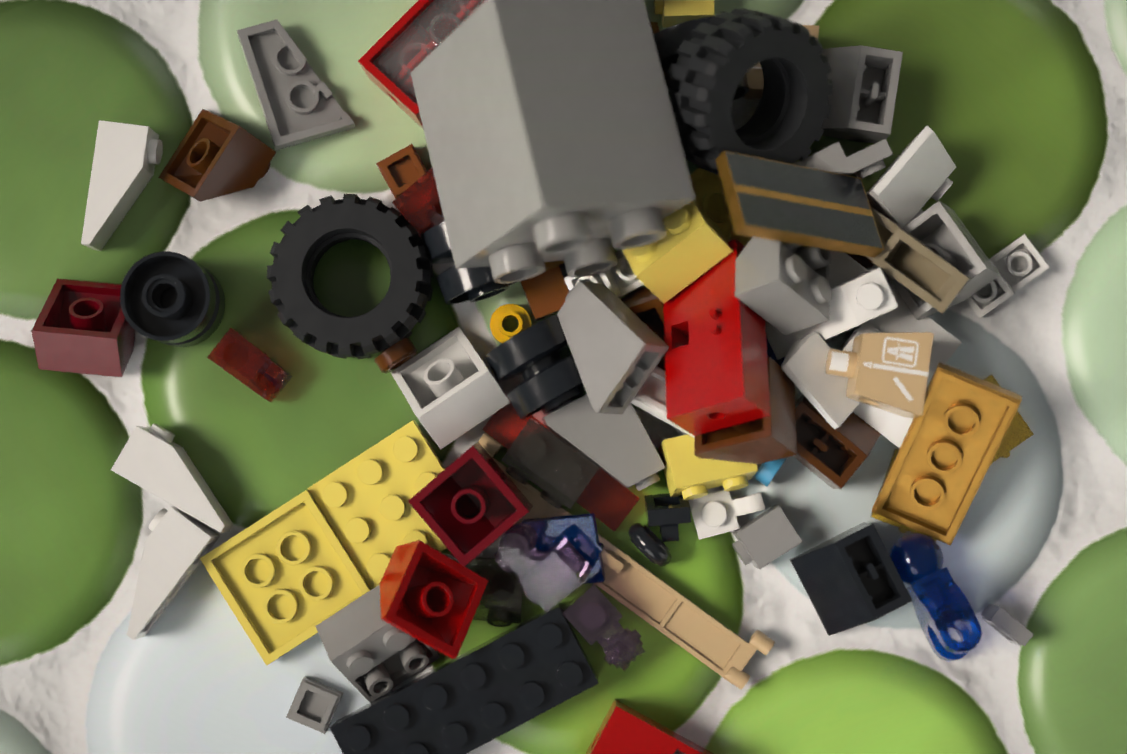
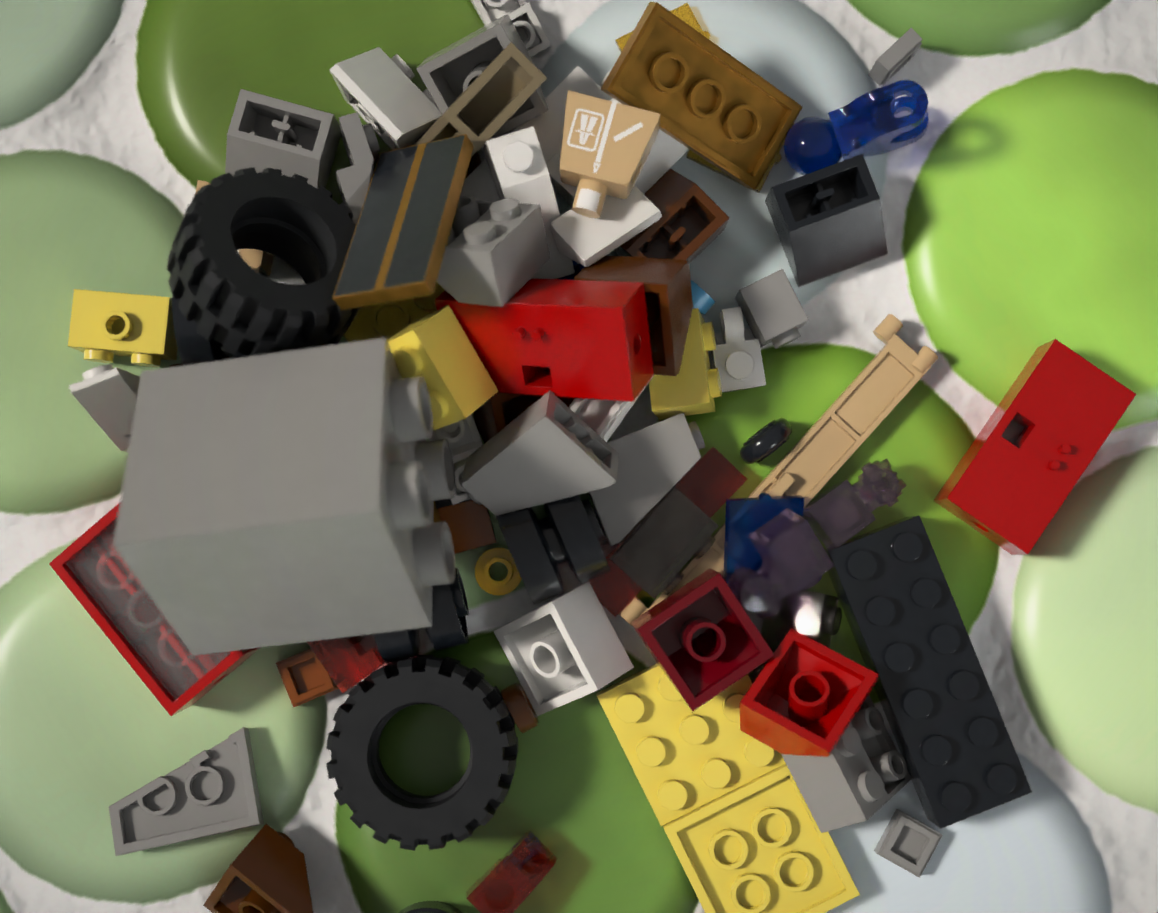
camera: 85 degrees left, 0 degrees up
(667, 514) = (734, 417): black tile -> none

